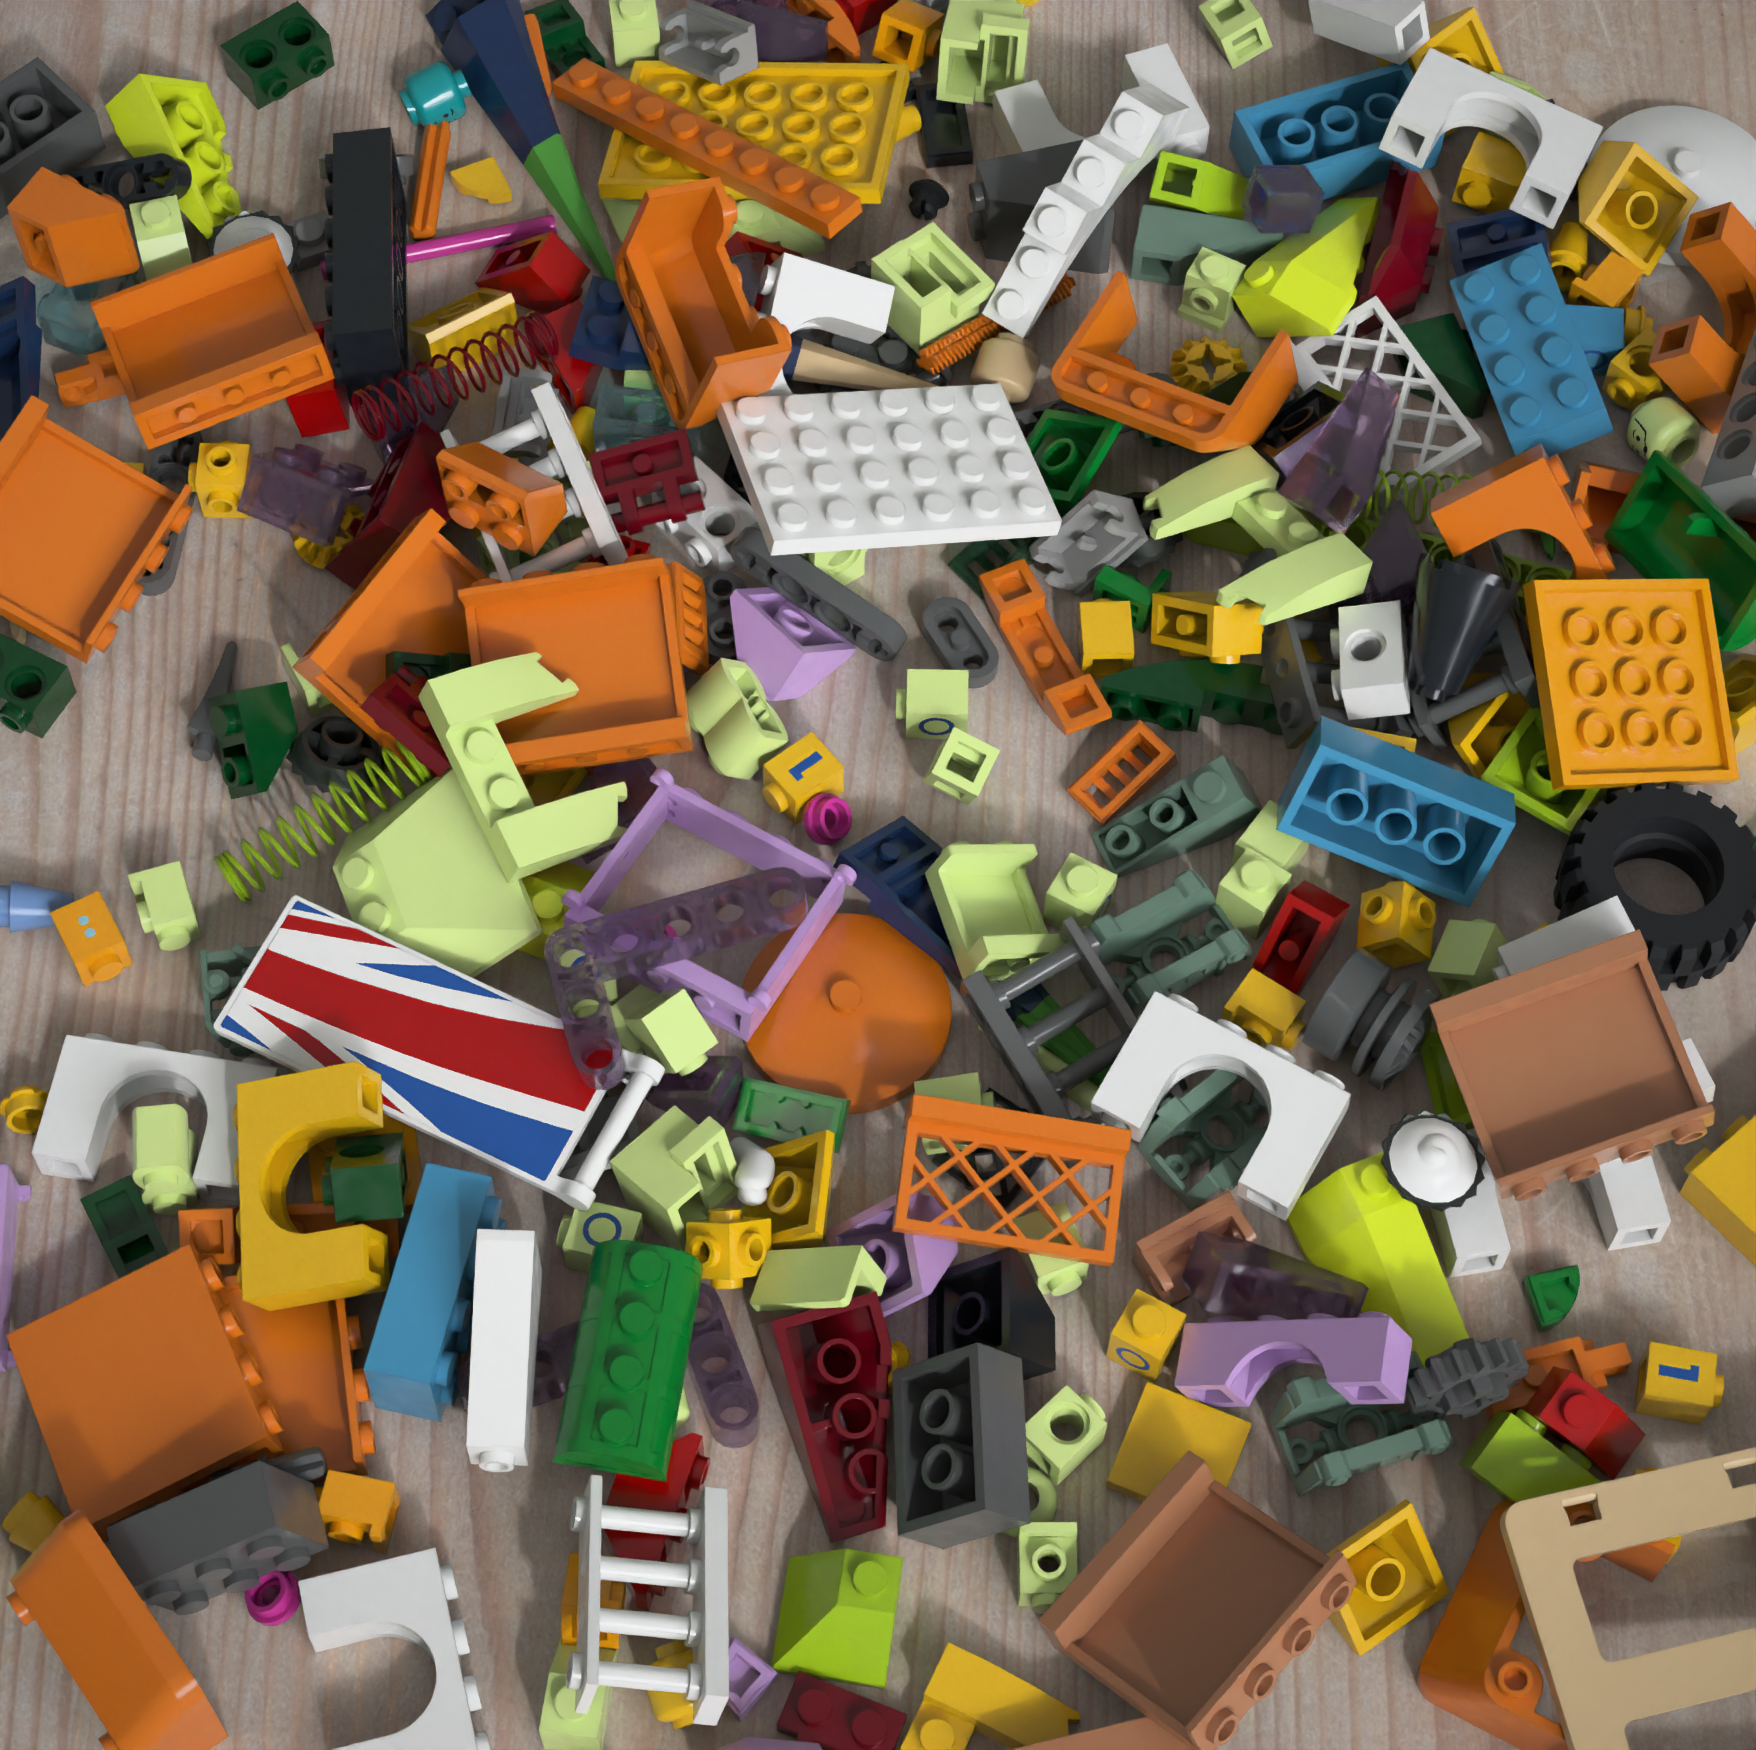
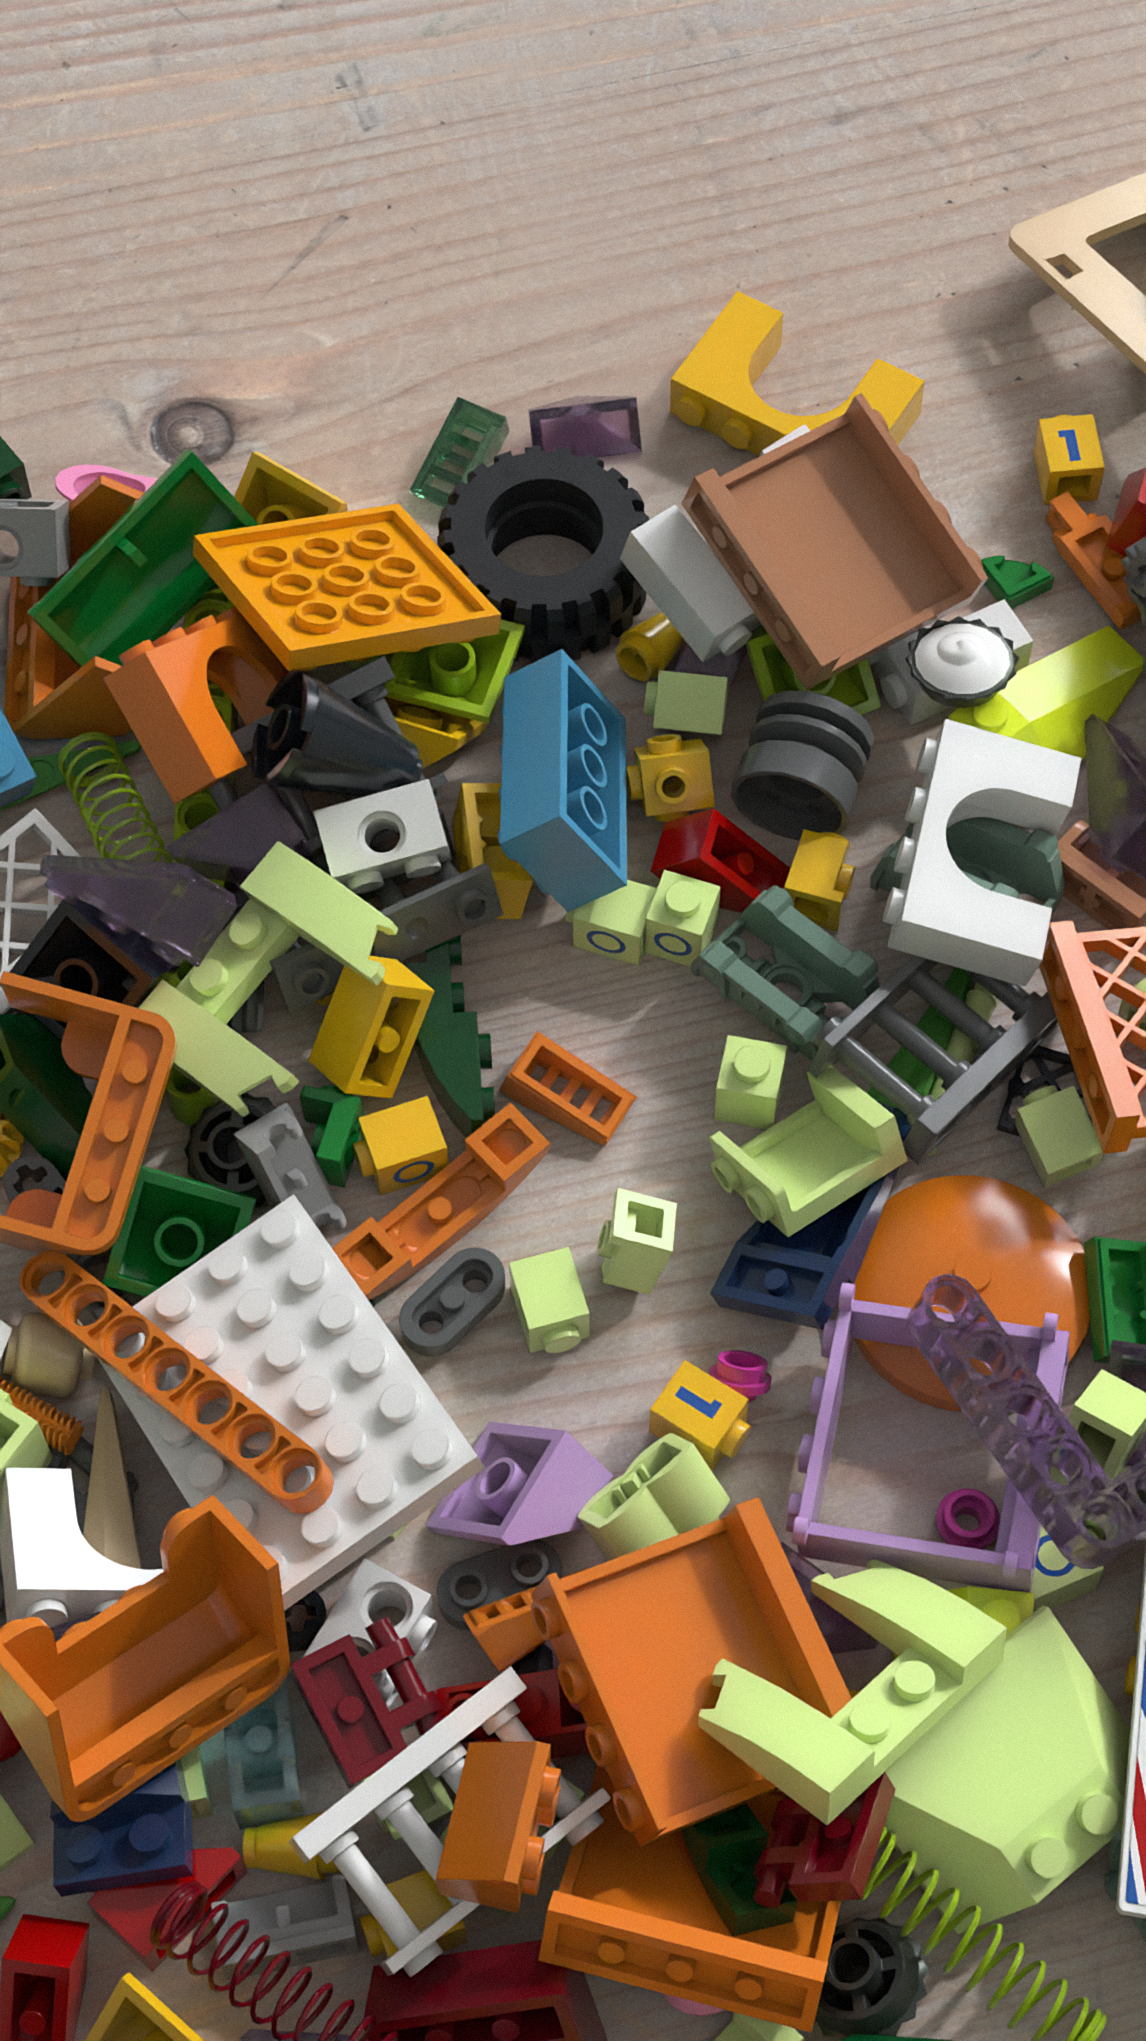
camera: 105 degrees left, 0 degrees up
(820, 596) = (469, 1411): dark grey beam -> none
(912, 411) = (188, 1398): none -> orange beam
(1180, 818) = (612, 1015): sand green slope -> none

